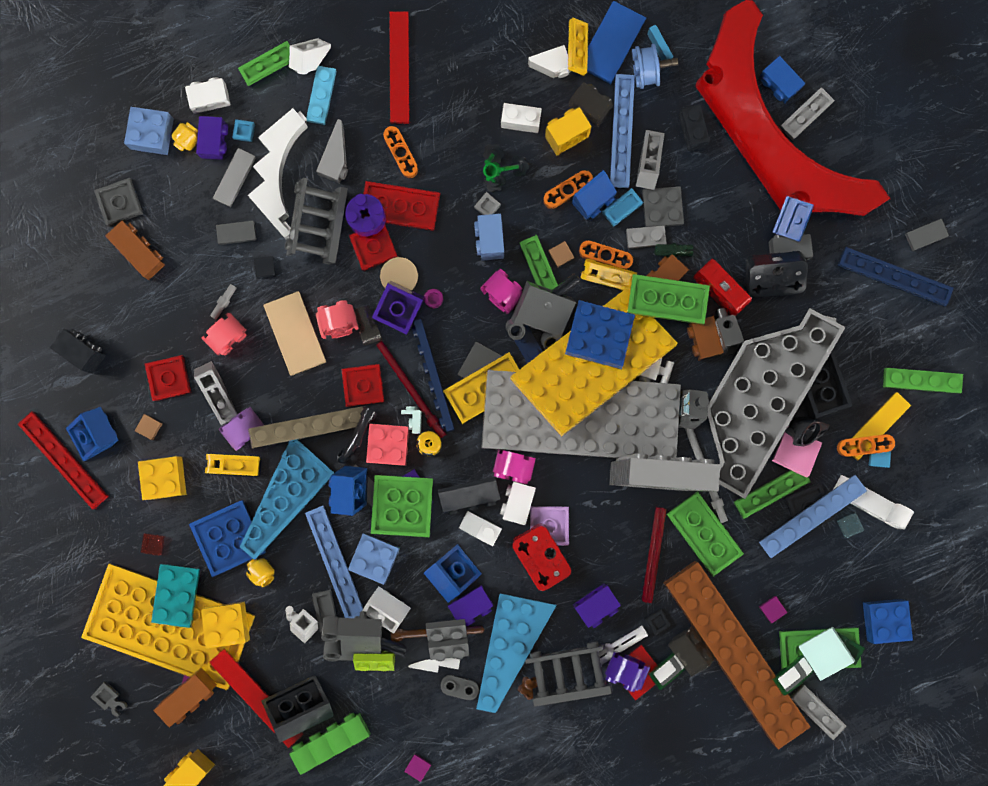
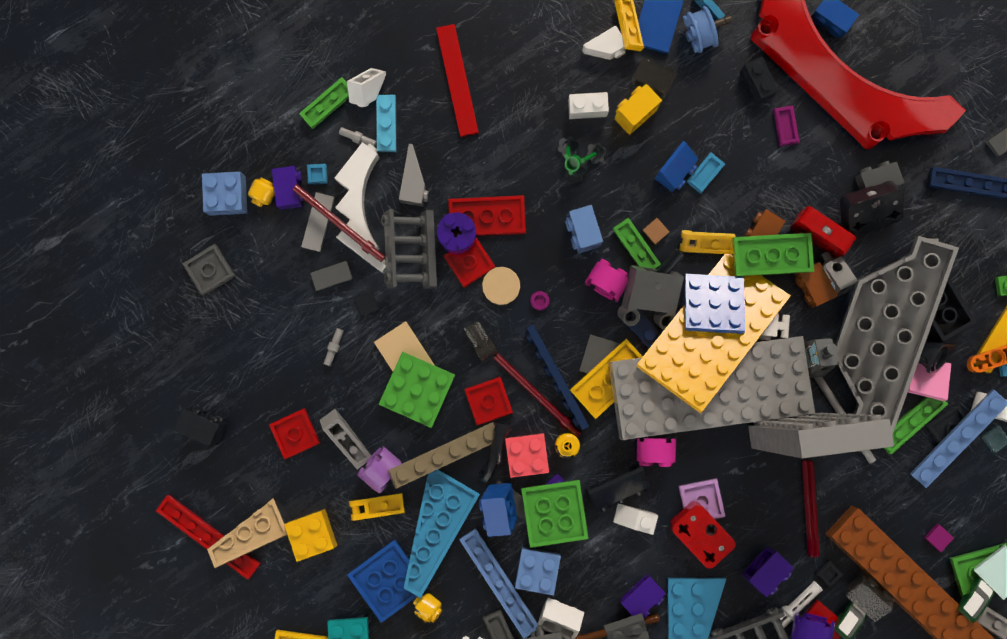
camera: 10 degrees left, 0 degrees up
(92, 433) = (231, 504): blue slope -> none
(110, 464) = (257, 531): none -> tan wing
(135, 249) = (236, 313): dark orange brick -> none
(148, 427) = (286, 486): medium nougat tile -> none
(152, 544) = (314, 602): clear red tile -> none
(207, 95) = (274, 146): white brick -> none
(224, 334) = (342, 380): coral brick -> none
(275, 209) = (367, 246): none -> dark red bar
(289, 102) = (357, 137): none -> light grey bar
(295, 359) = (417, 389): none -> bright green plate
(336, 320) = (450, 342): coral brick -> none
(398, 307) = (508, 317): dark purple brick -> none
(411, 161) = (477, 155): orange beam -> none
(416, 421) = (548, 428): light aqua bracket -> none
(452, 573) = (617, 569): blue slope -> none
(487, 205) = (572, 198): light grey tile -> none
(518, 503) = (667, 486): white brick -> none
(553, 192) = (662, 160): orange beam -> none
(594, 246) = (685, 217): orange beam -> none
(622, 130) = (689, 97): medium blue plate -> none
(645, 237) = (734, 197): light grey plate -> none
(650, 160) = (723, 121): light grey slope -> none
(663, 207) = (744, 164): dark grey plate -> none
(676, 250) = (765, 203): clear green axle -> none
(705, 534) = (857, 480): bright green tile -> none
(711, 177) = (786, 125): none -> magenta tile
(793, 218) = (878, 150): plate -> none
(806, 113) = (866, 44): light grey plate -> none

